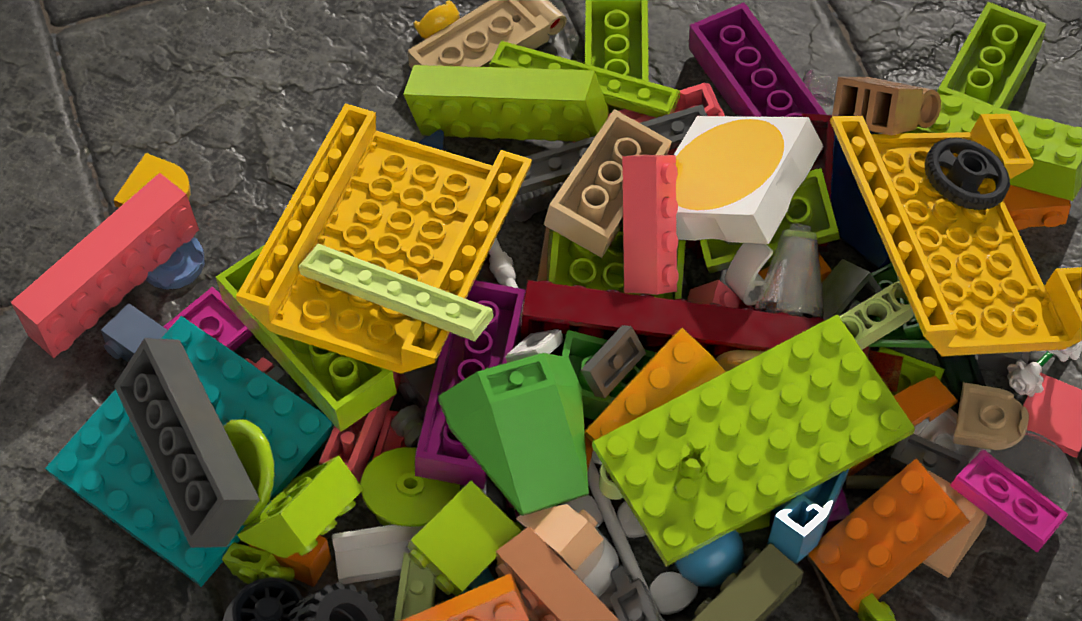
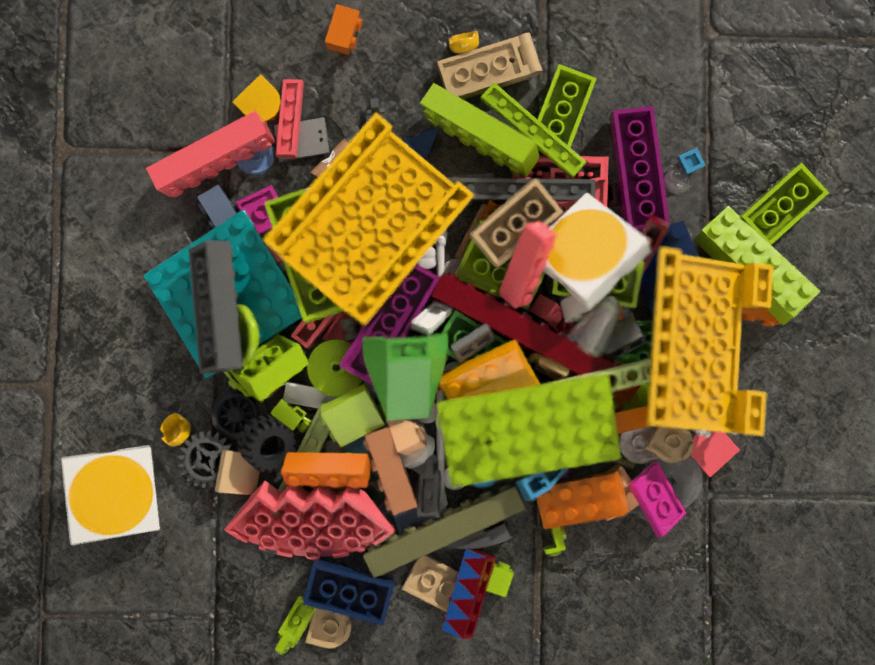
camera: 15 degrees right, 30 degrees up
(210, 194) = (289, 118): none -> coral tile
(238, 216) = (310, 138): none -> light grey container
(252, 61) = (343, 29): none -> orange brick
(369, 586) = (291, 416): none -> lime piece
(396, 292) = (358, 268): yellowish green tile -> none
(833, 57) = (691, 161): none -> dark azure tile
(886, 104) = (700, 232): medium nougat piece -> none
(932, 456) = (630, 459): dark grey plate -> none
(966, 173) = (726, 304): black wheel -> none

